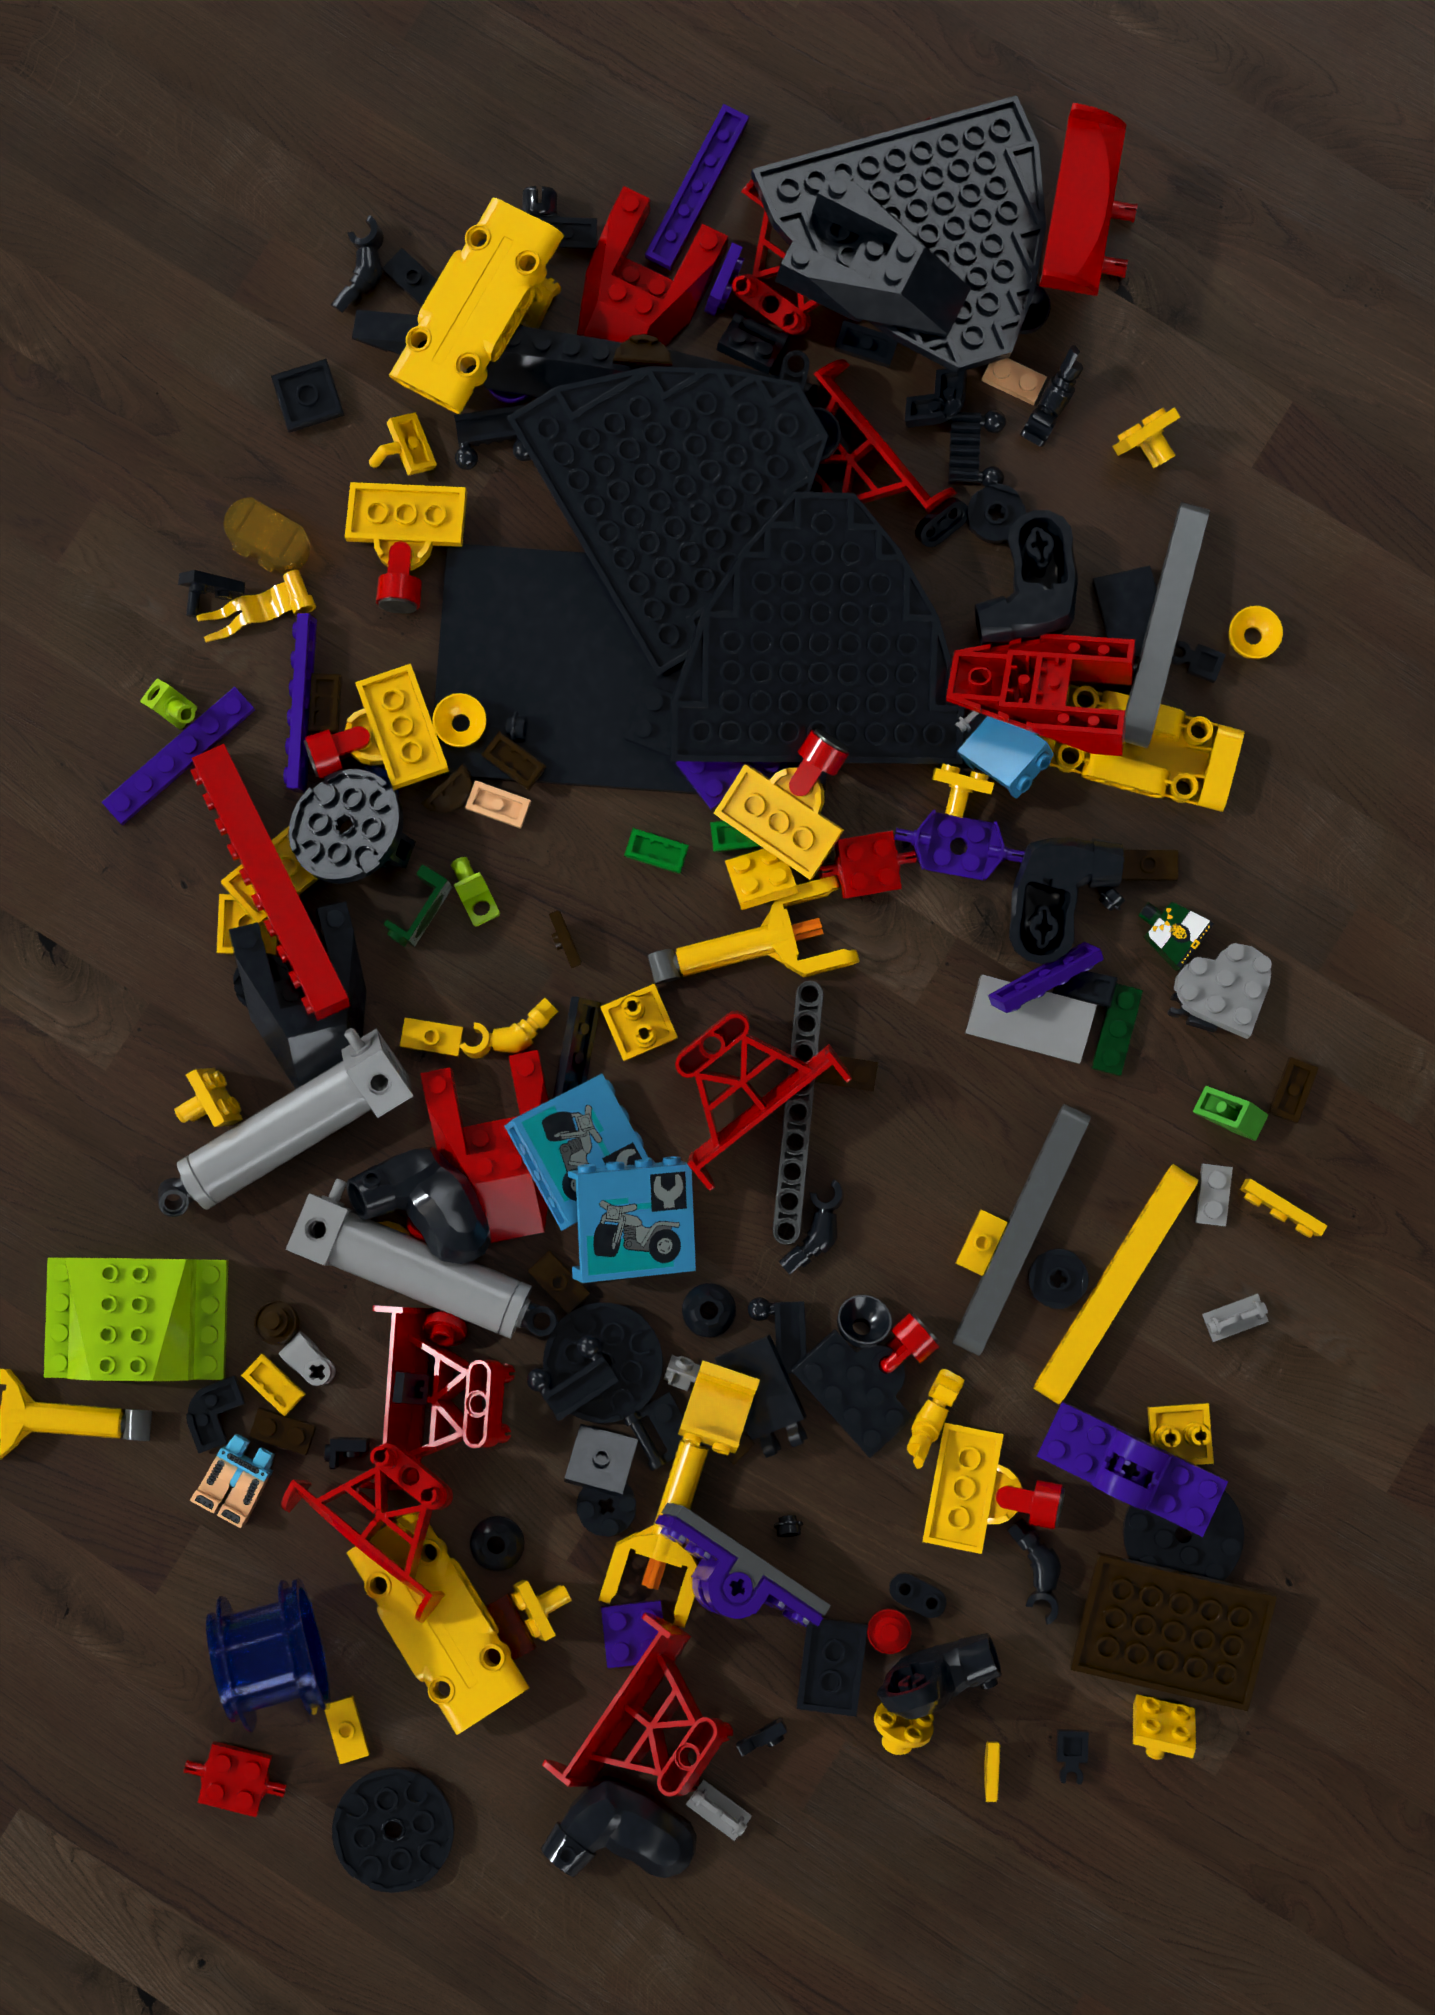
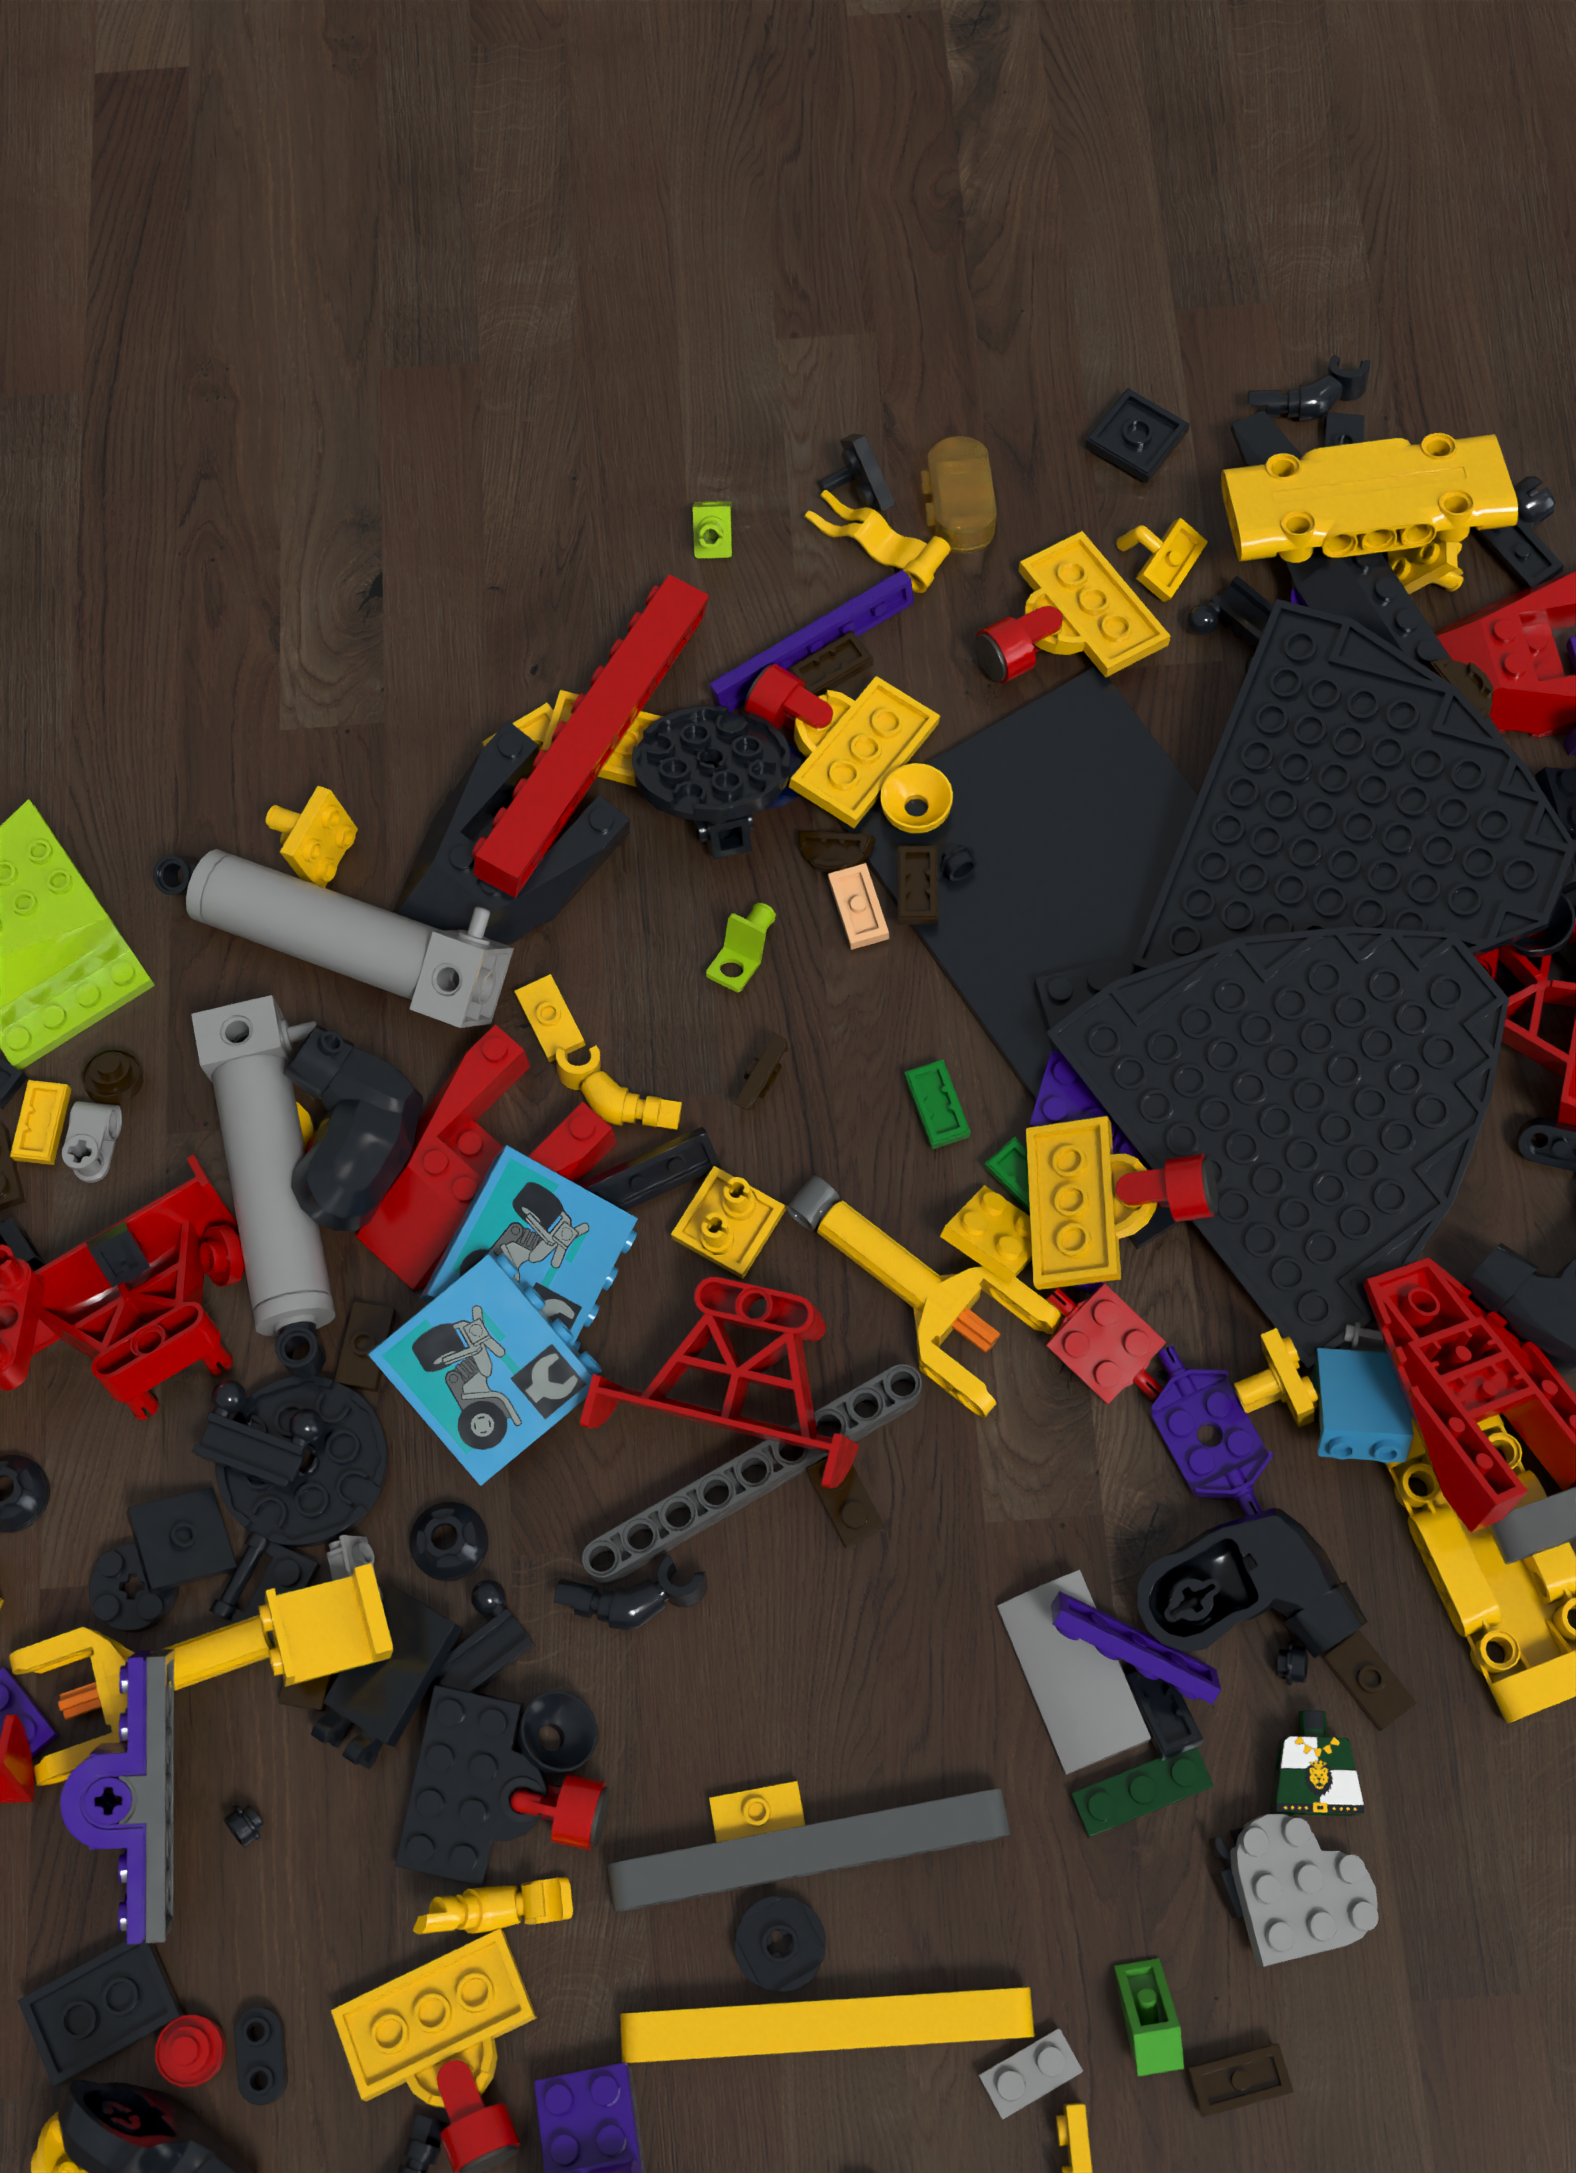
camera: 60 degrees right, 15 degrees down
(177, 756) = (648, 567): dark purple plate -> none
(441, 890) = (682, 909): dark green panel -> none

